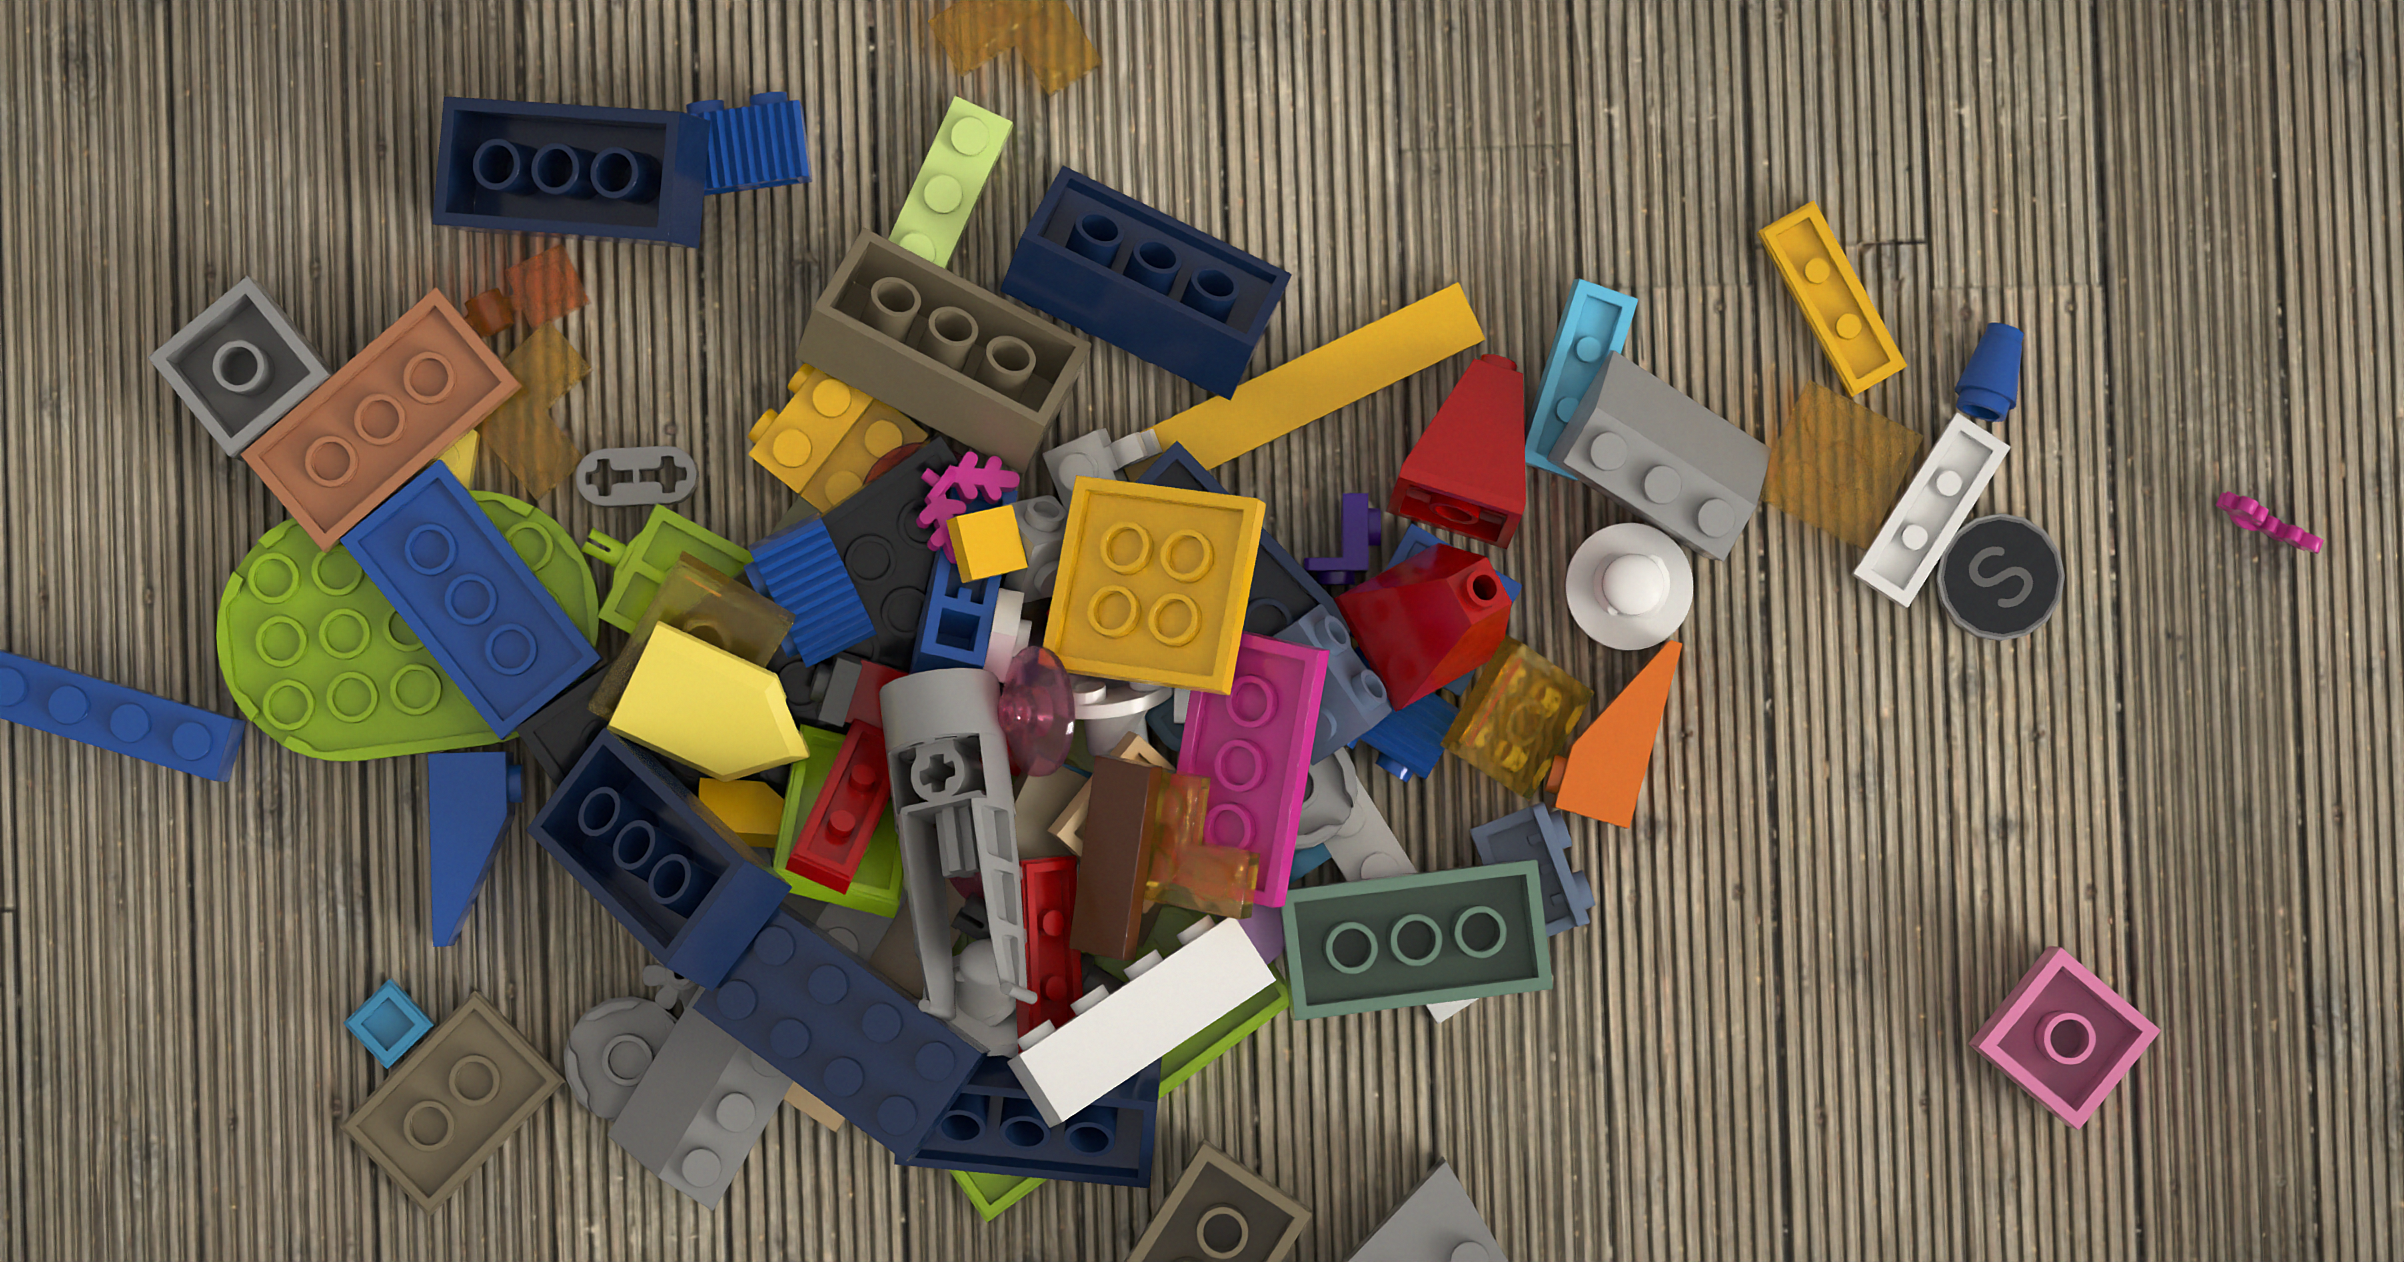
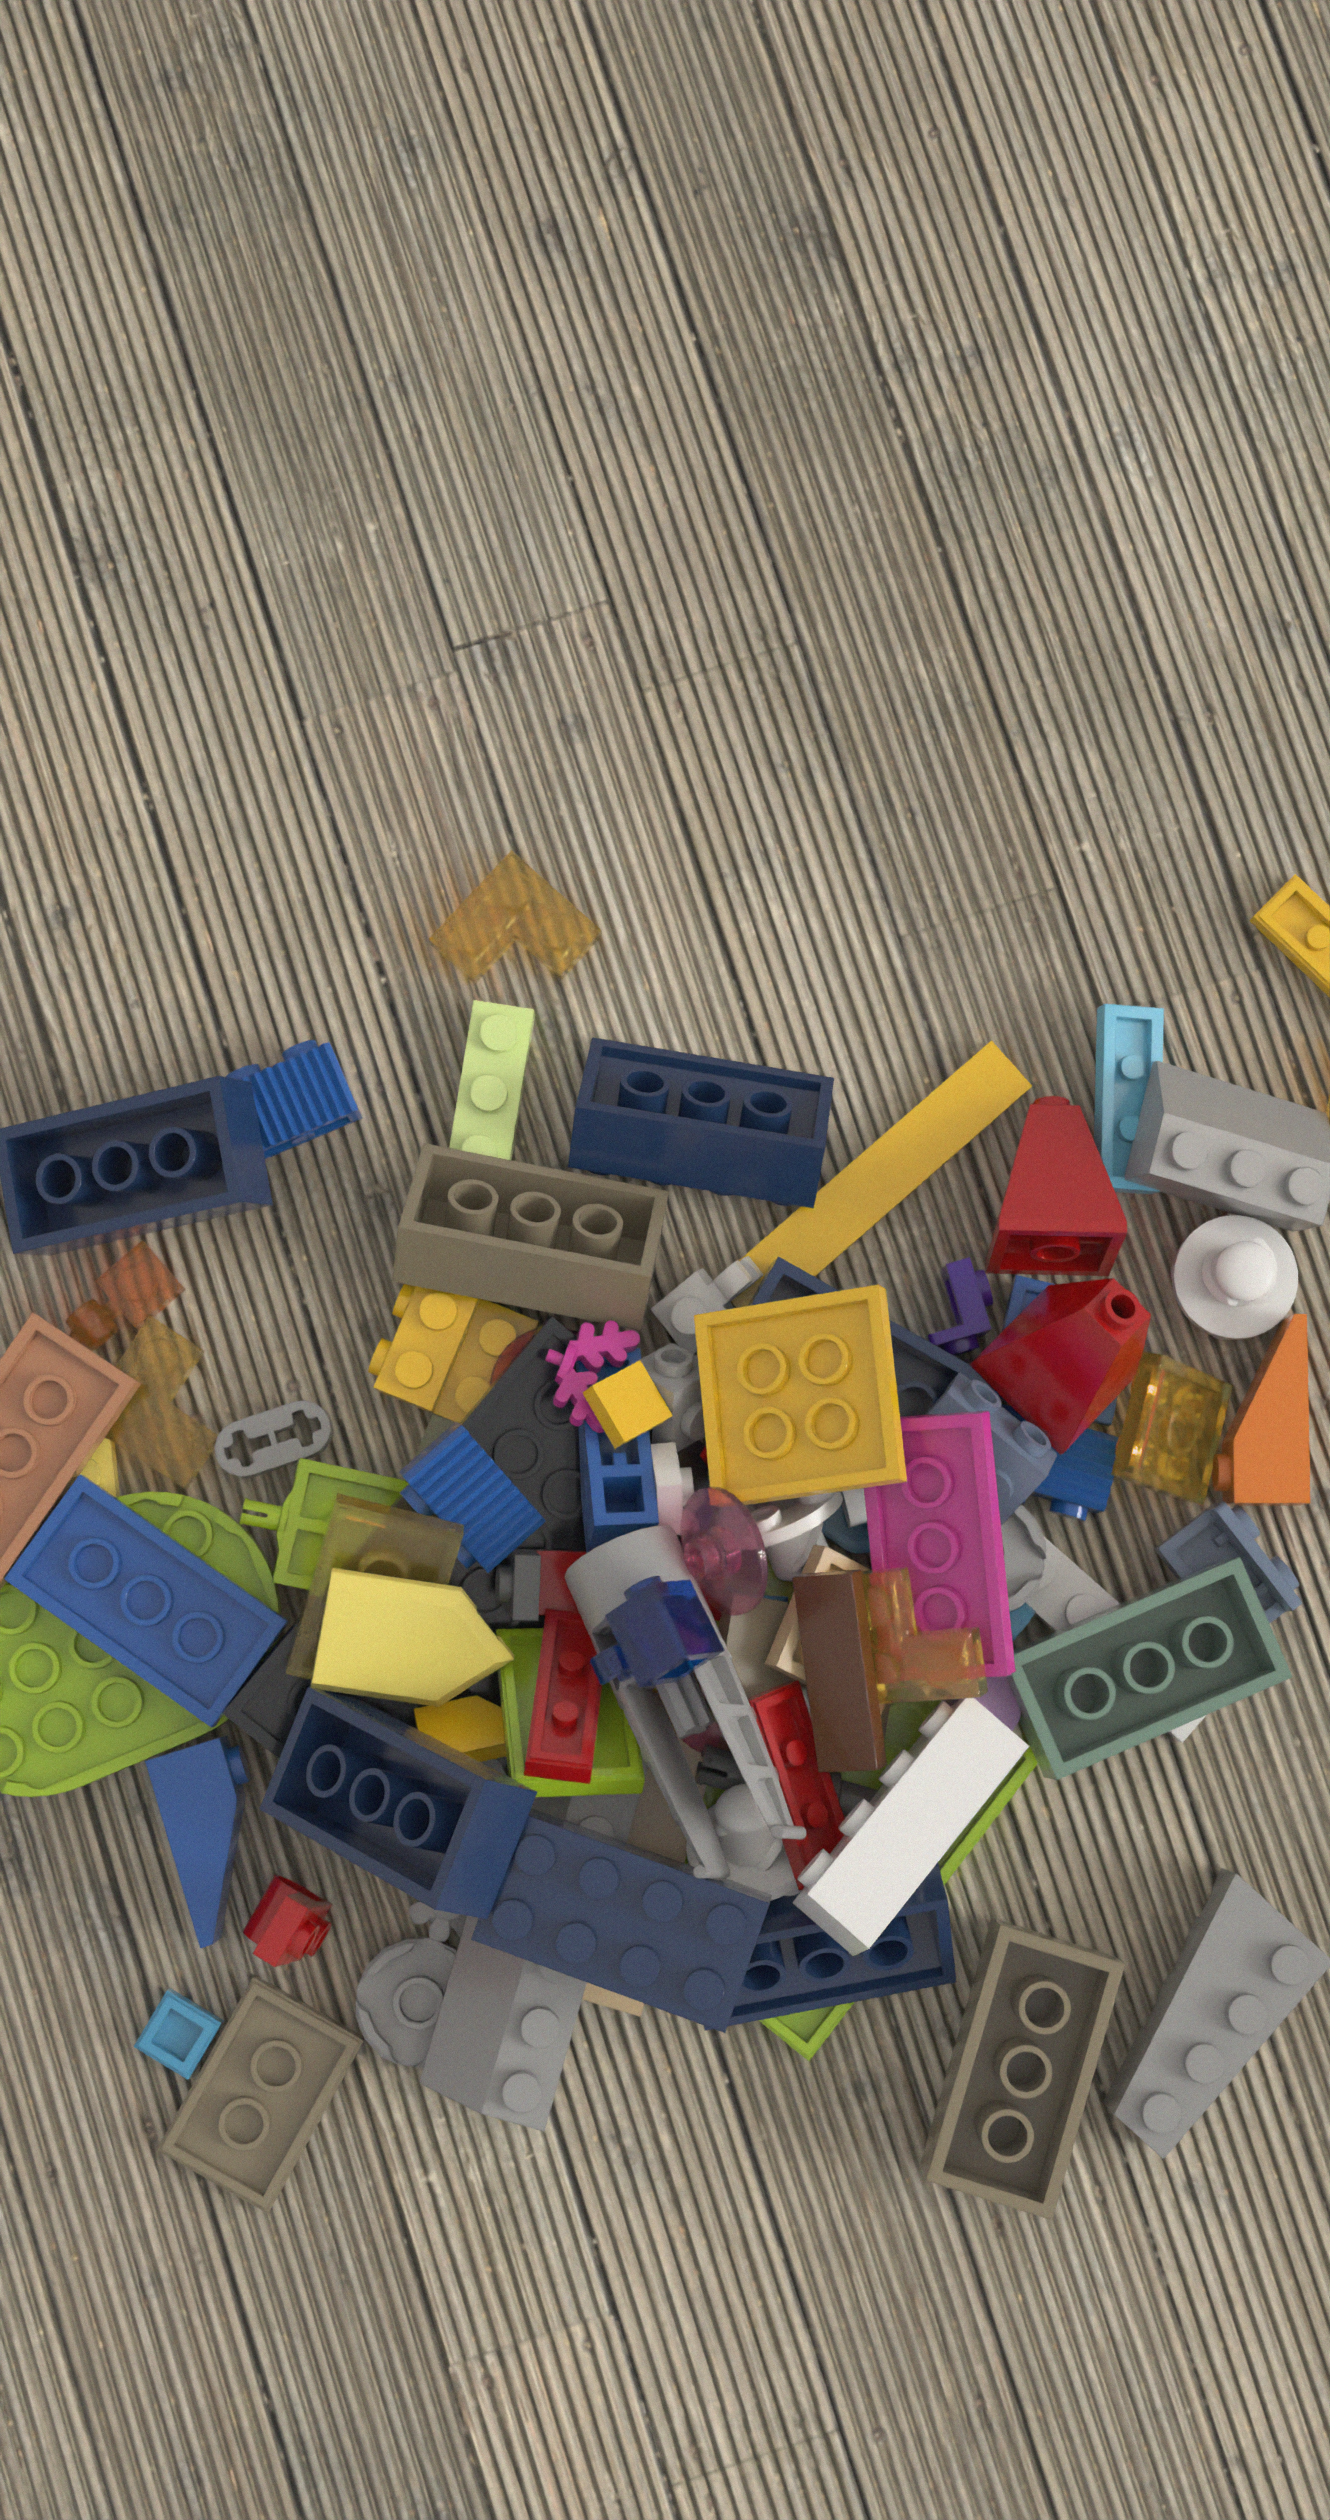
camera: 20 degrees left, 5 degrees down
(523, 947) = (288, 1922): none -> red plate
(948, 773) = (658, 1634): none -> clear blue brick

